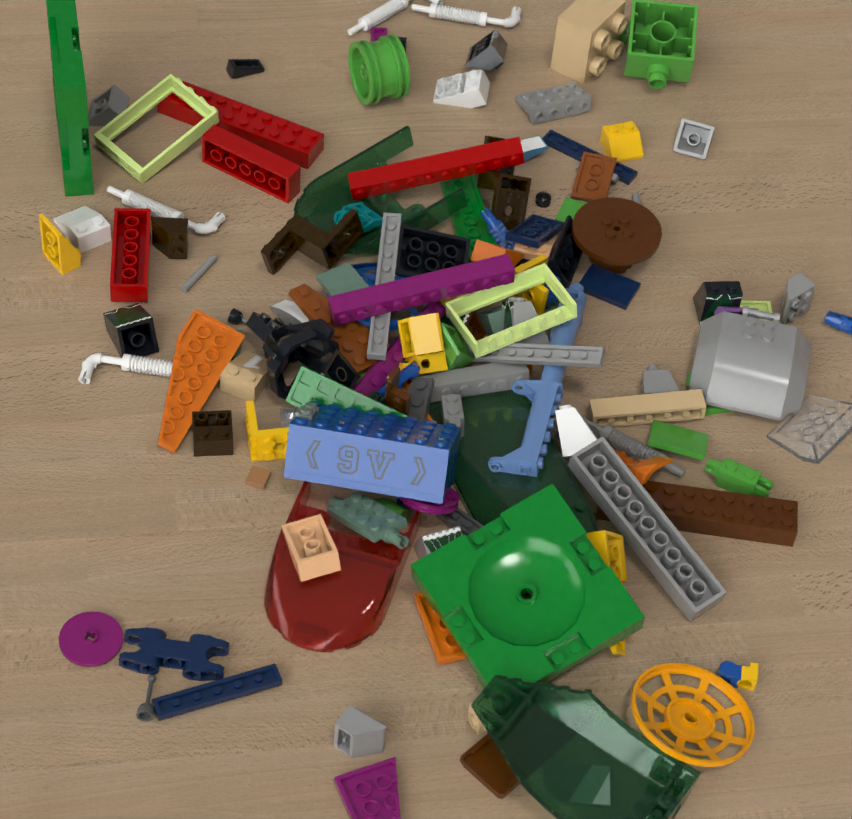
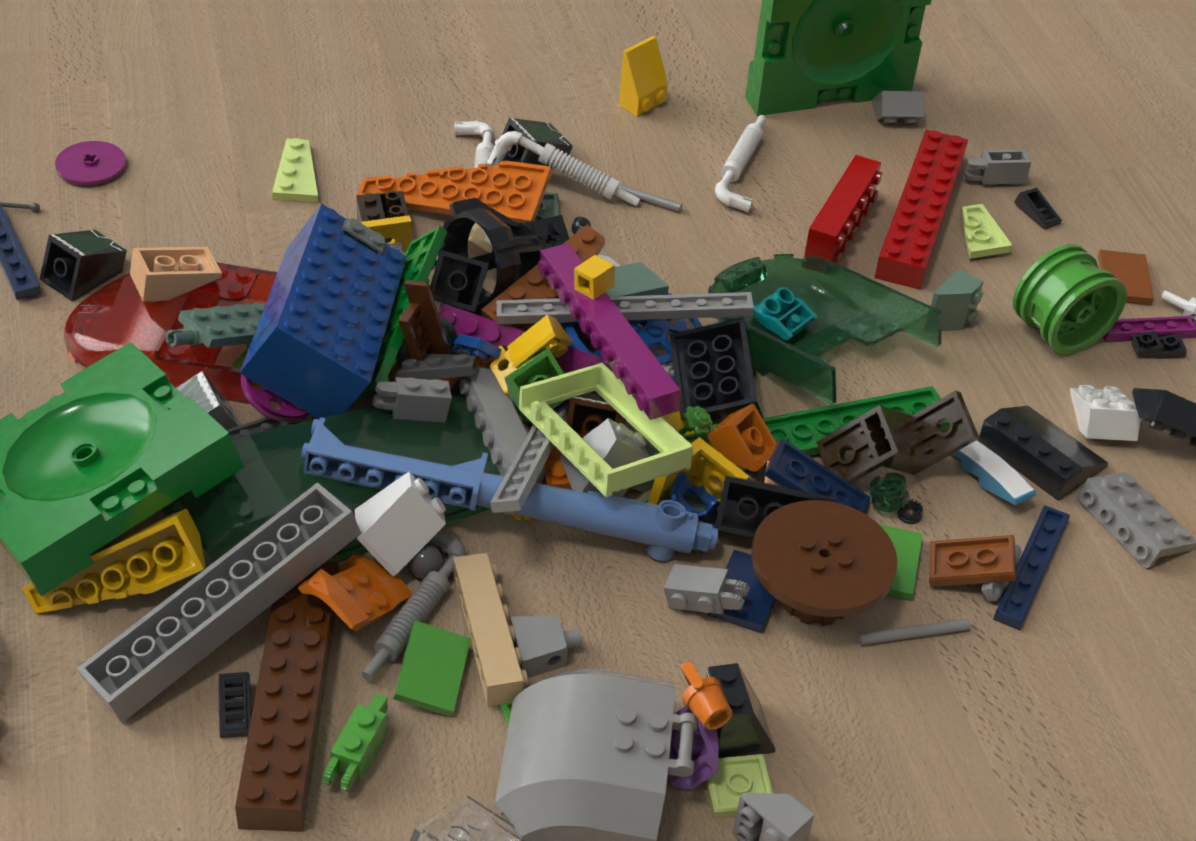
camera: 85 degrees right, 5 degrees down
(84, 228) = (689, 107): white slope -> none
(130, 255) = (652, 137): red brick -> none
(131, 492) = (296, 173): none -> yellowish green wing
(142, 106) = (805, 133): yellowish green window -> none
(161, 652) = (62, 209): dark blue piece -> none
(168, 311) = (564, 163): none -> white piece
(171, 236) = (686, 162): dark brown slope -> none
(202, 69) = (999, 167): none -> light grey hinge
(250, 634) = (80, 262): none -> black slope
(272, 101) = (982, 233): none -> yellowish green wing
(312, 241) = (702, 256): dark brown bracket -> none
(324, 45) = (1131, 271): none -> dark orange tile
(357, 127) = (958, 300): none -> sand green slope
(386, 280) = (594, 277): none -> yellow brick
(436, 168) = (889, 364): red brick -> none
(497, 229) = (811, 439): blue hinge -> none
(498, 121) = (1040, 450): none -> black slope
(536, 202) = (889, 491): none -> clear green wheel
(618, 302) = (703, 589): none -> light grey hinge
(622, 141) = (1079, 600): yellow slope -> none
(694, 138) = (1138, 699): light grey slope -> none
(696, 538) = (232, 686): none -> black slope
(736, 296) = (705, 698): none -> orange piece

